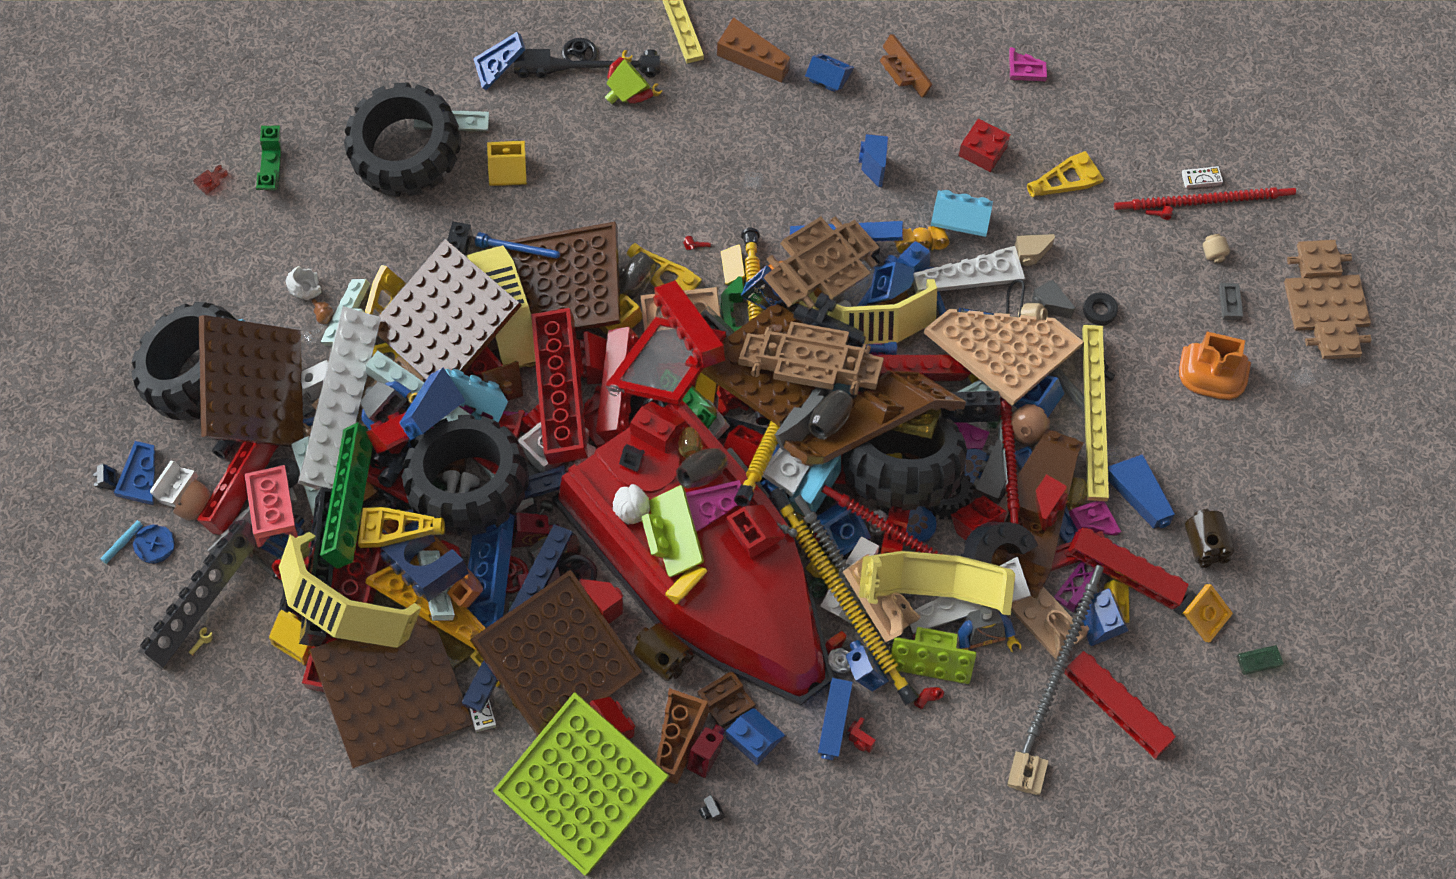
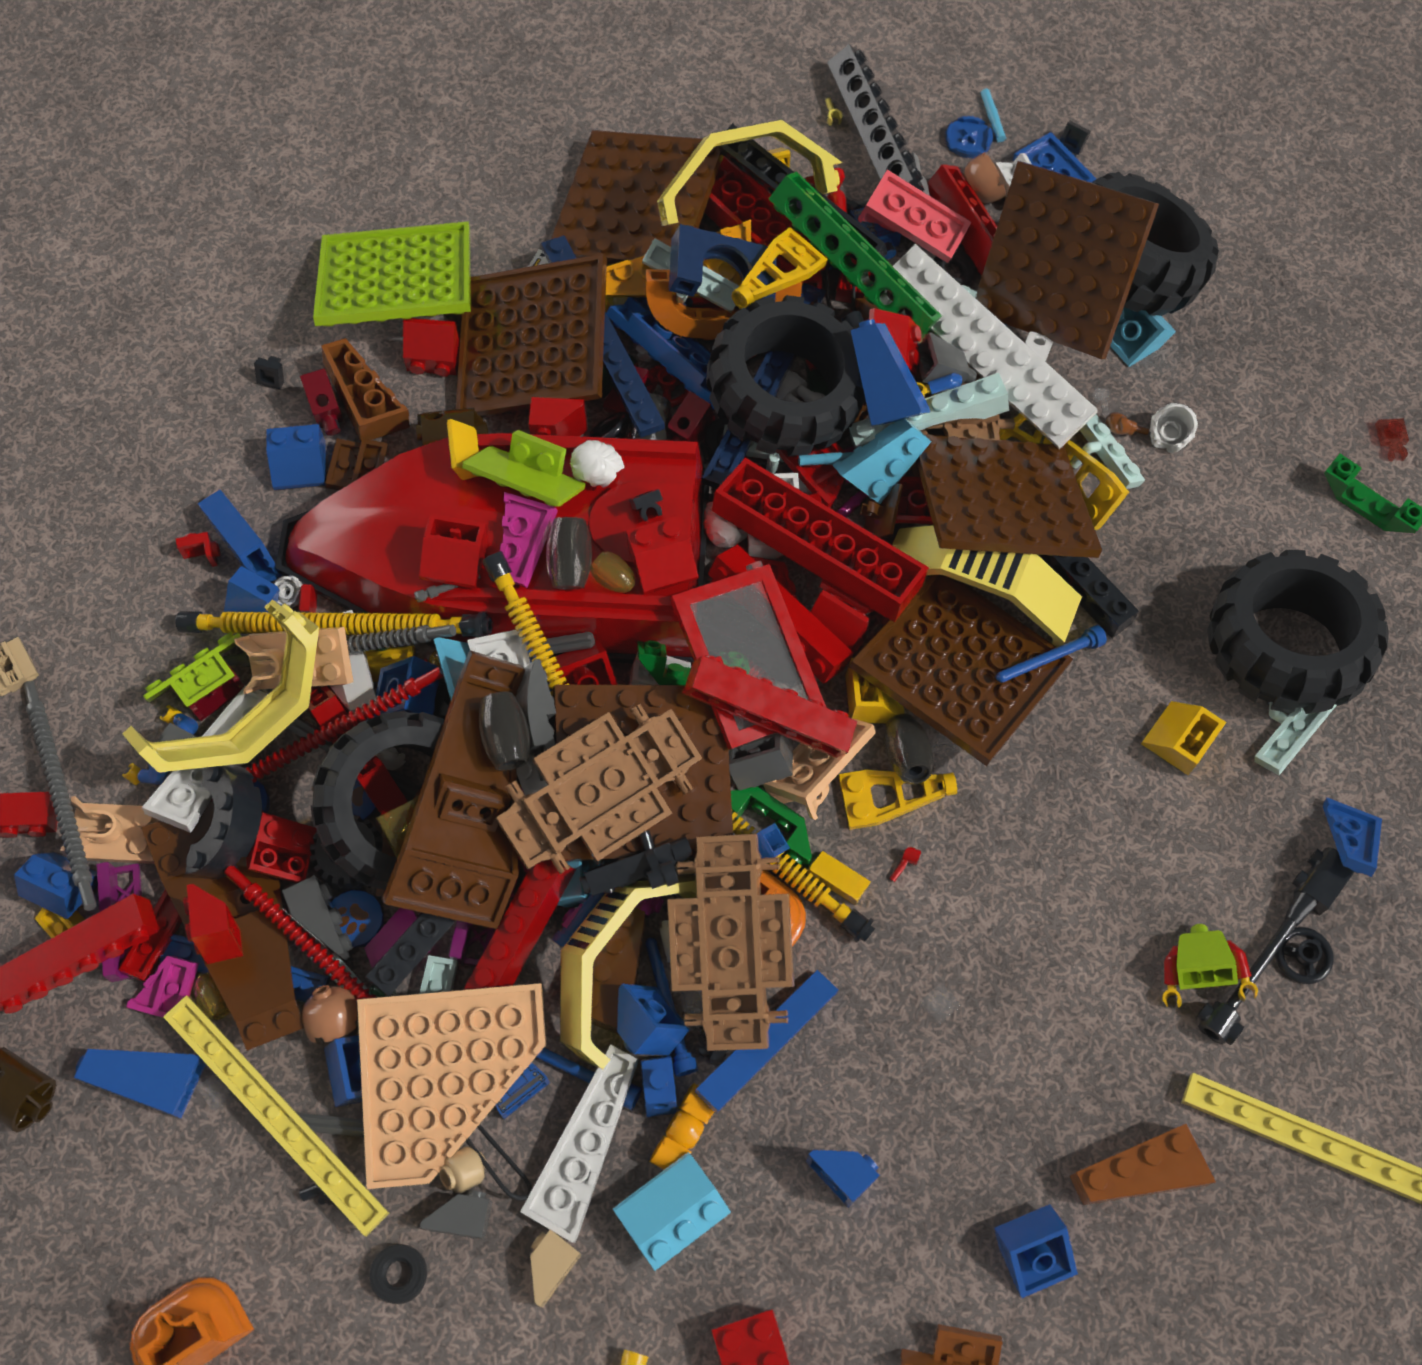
camera: 135 degrees right, 5 degrees up
(928, 694) = (175, 647): red arm -> none

